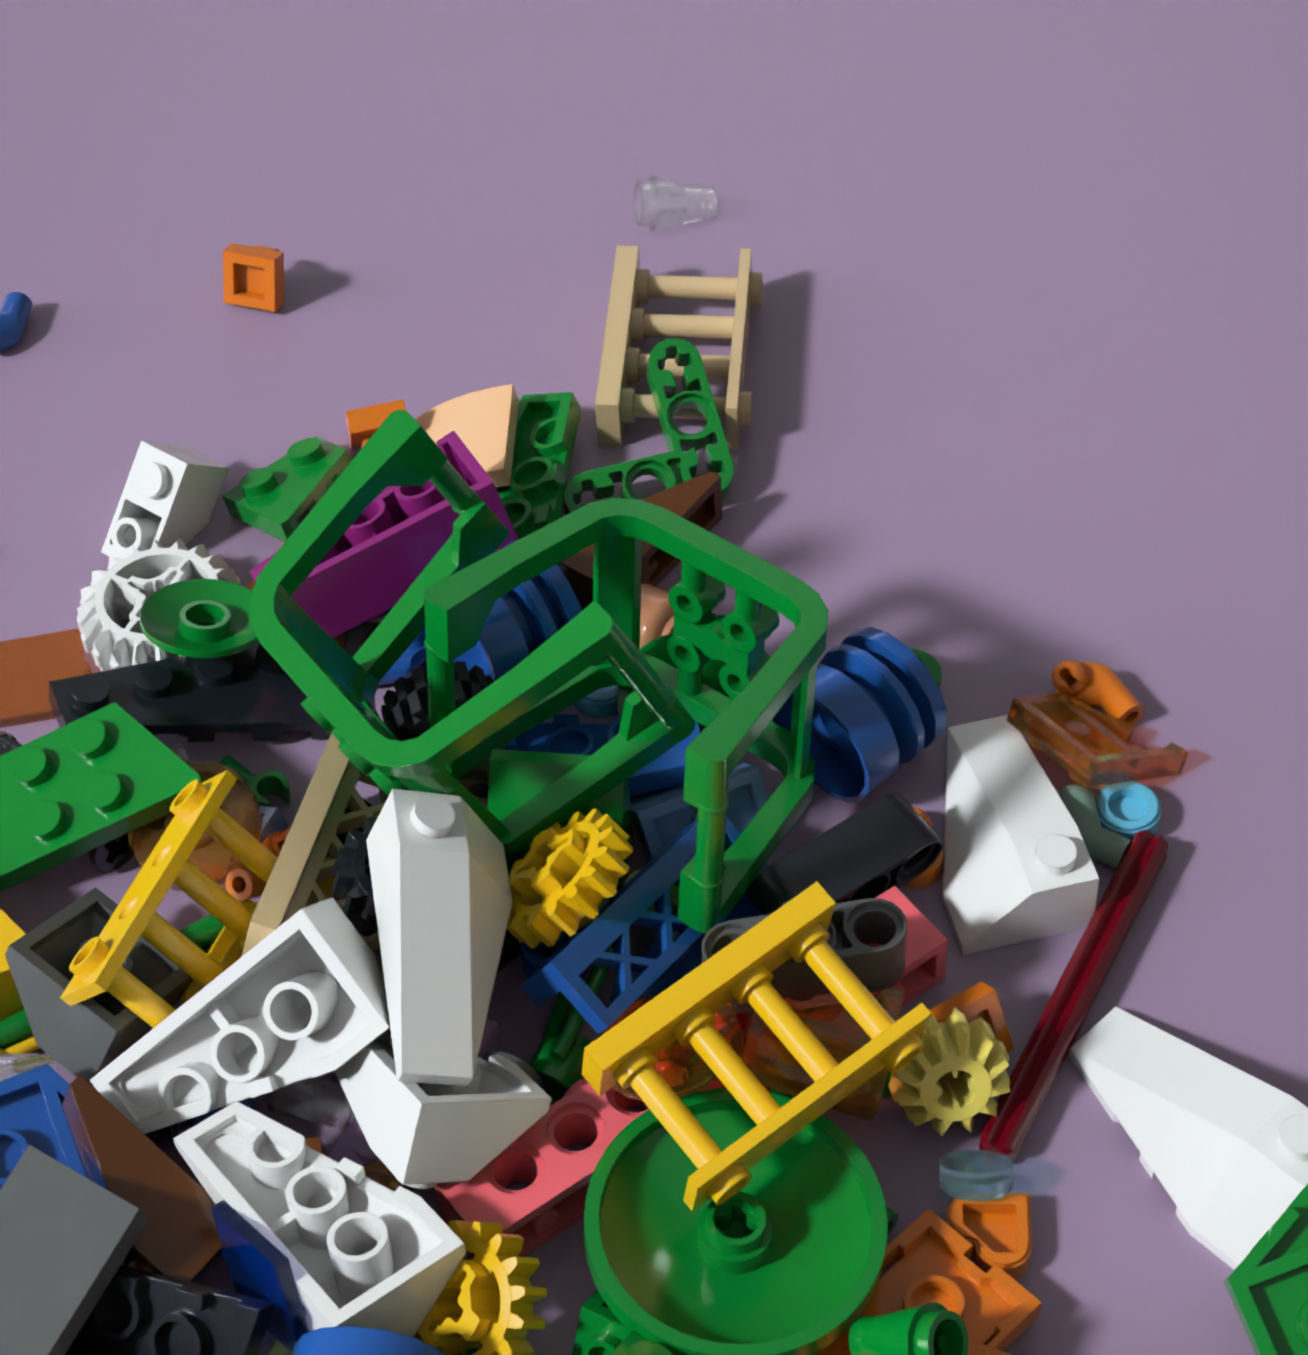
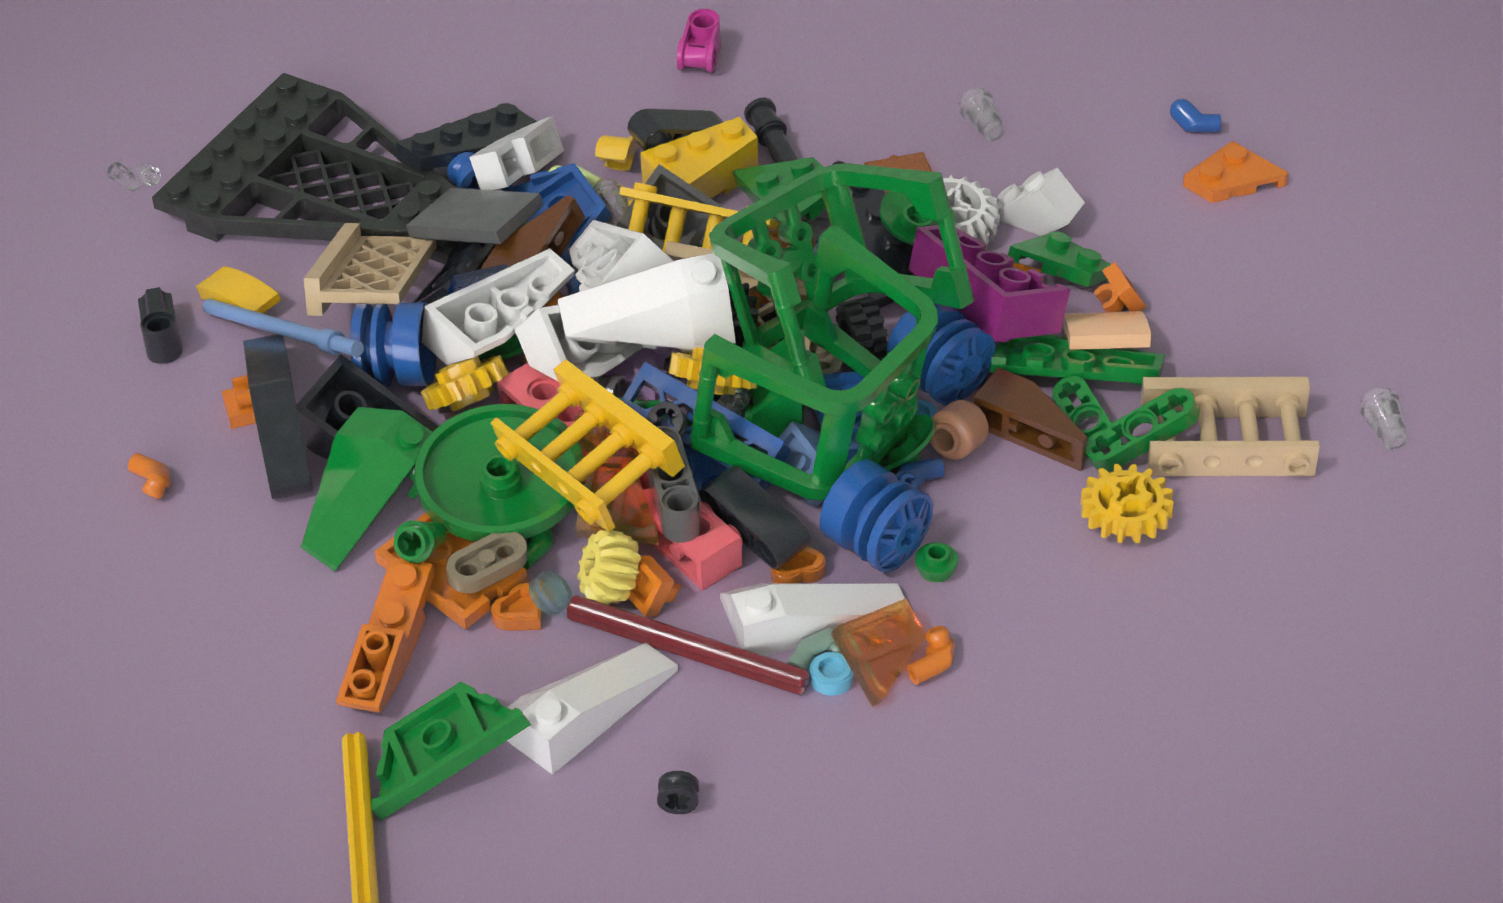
camera: 85 degrees right, 5 degrees down
(133, 302) = (1232, 173): none -> orange wing
(253, 277) = (1257, 217): orange tile -> none
(667, 936) = (661, 408): none -> black bush
(817, 458) = (1127, 503): none -> yellow gear
(943, 1254) = (484, 562): none -> dark tan plate

